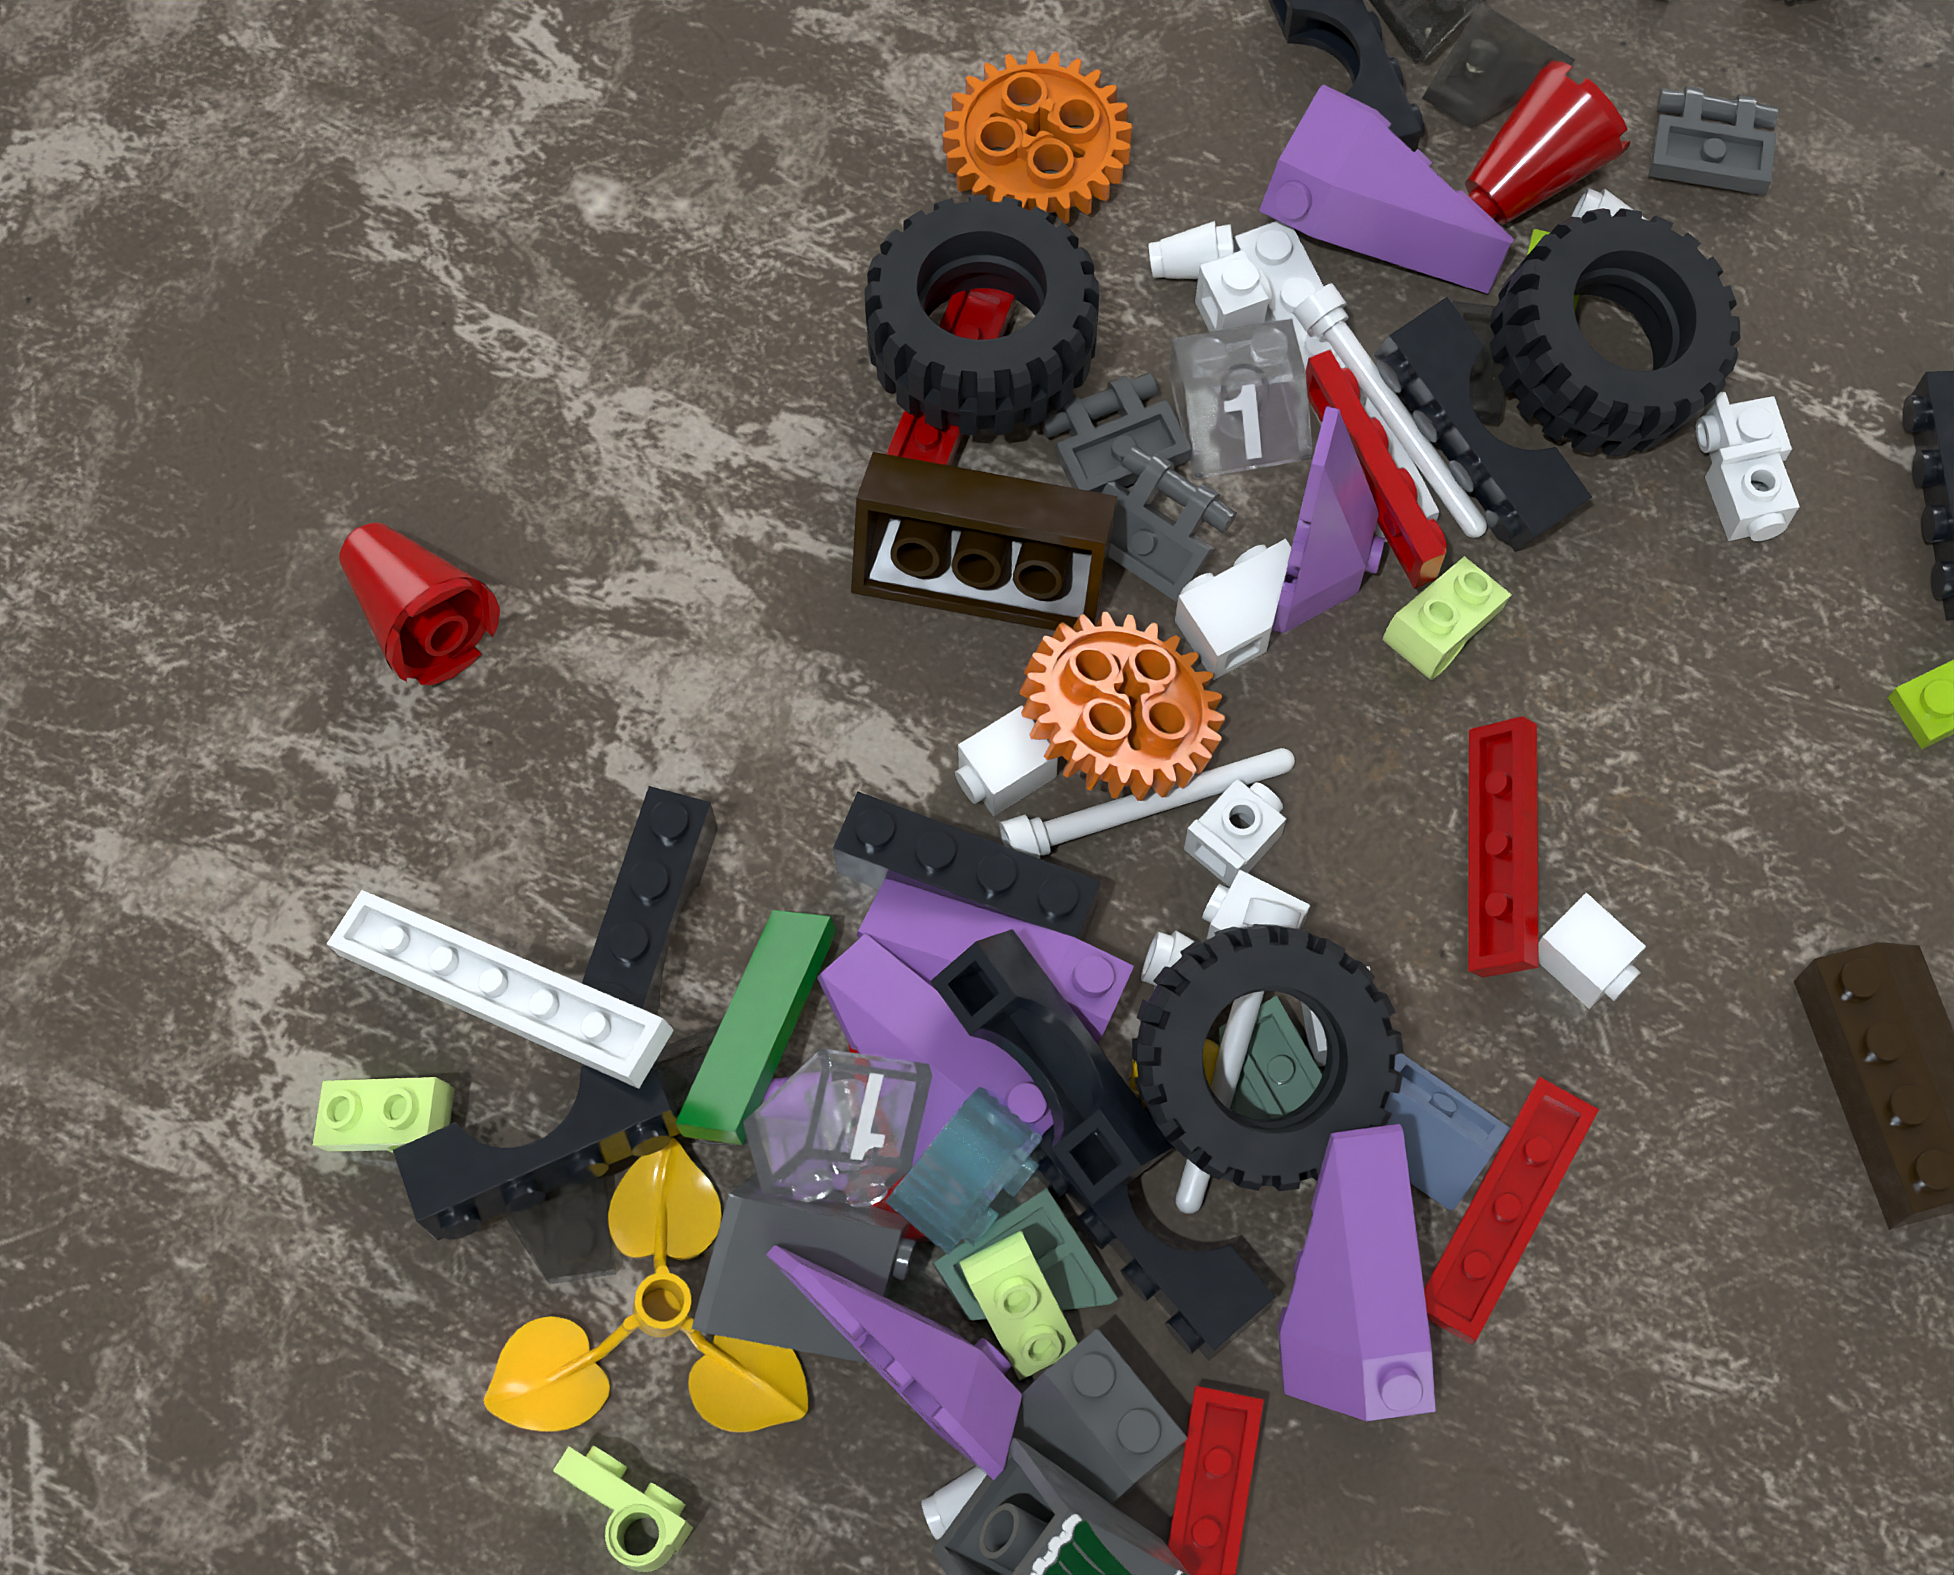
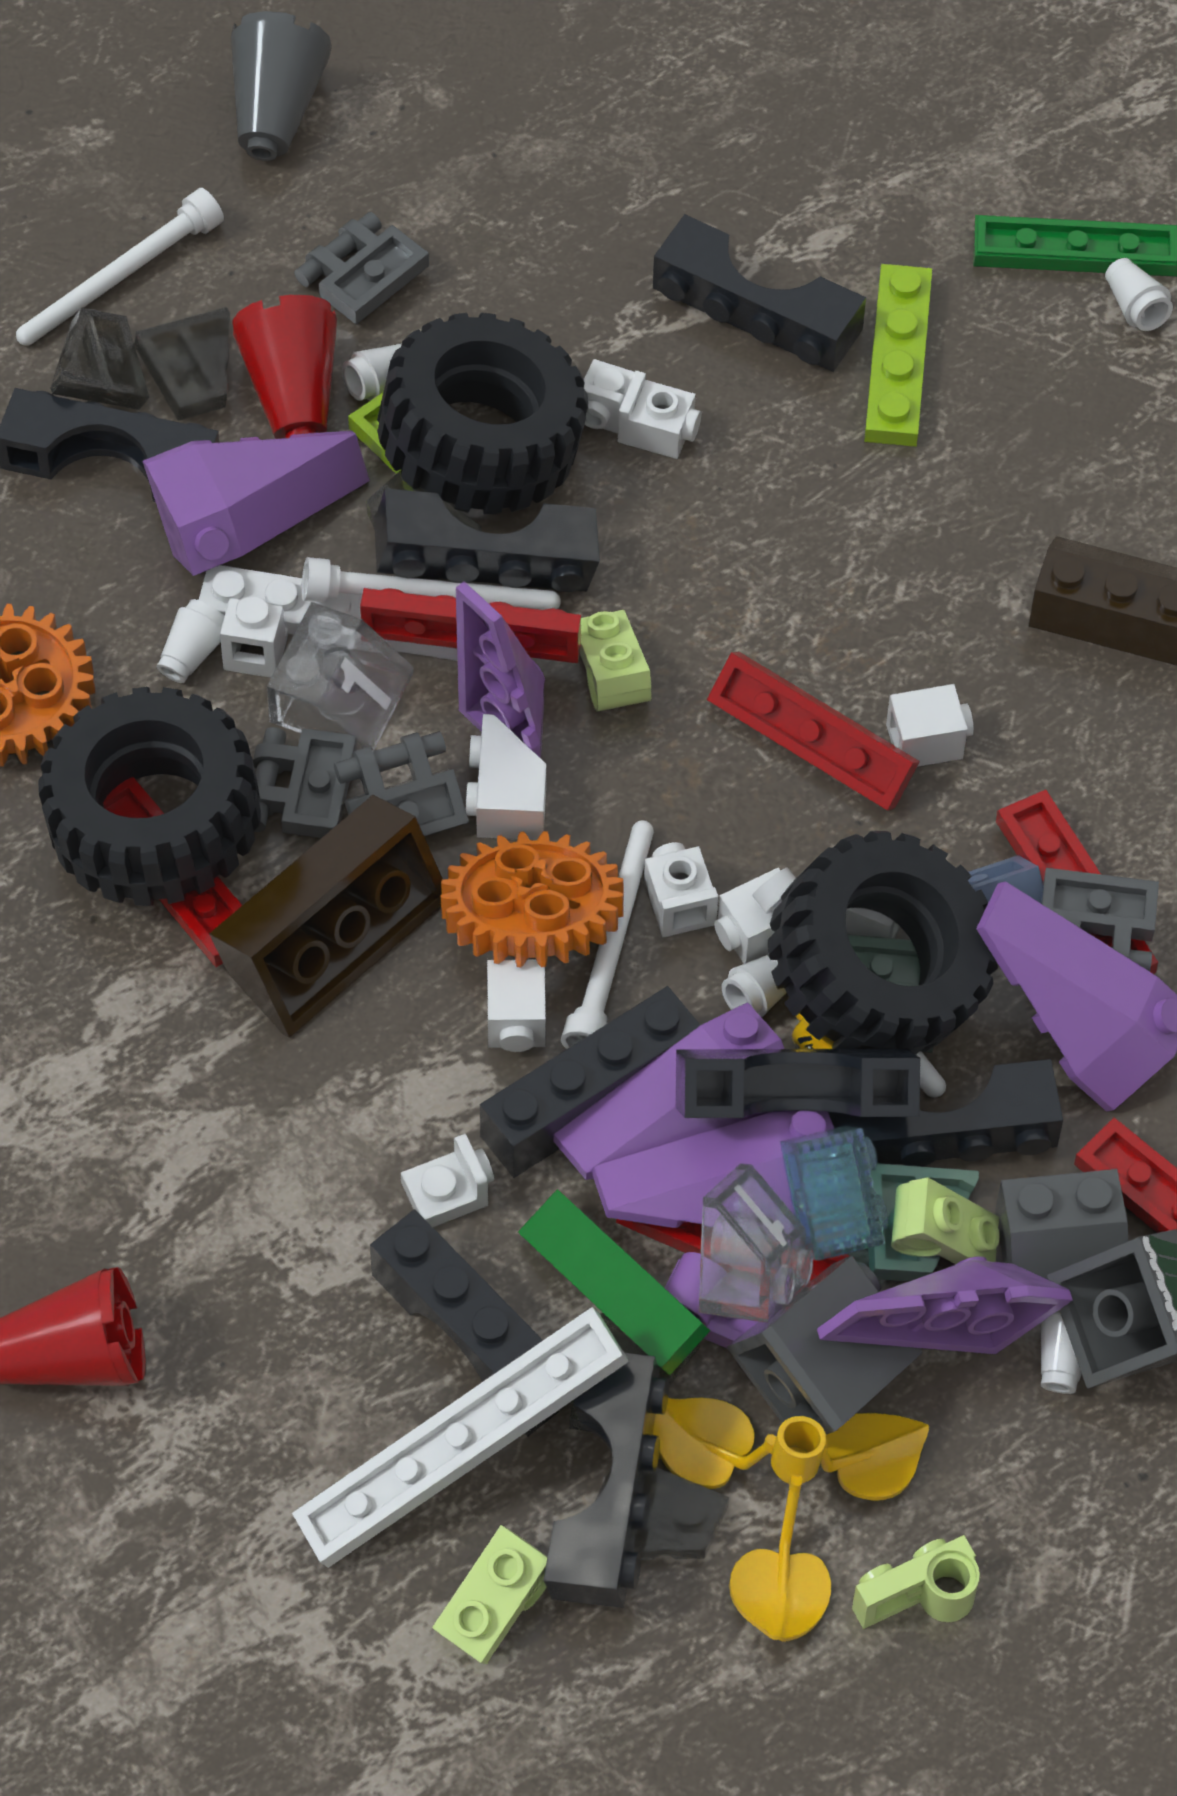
camera: 60 degrees left, 10 degrees down
(783, 819) = (449, 1184): none -> white bracket
(1490, 1245) = (1105, 907): none -> dark grey plate

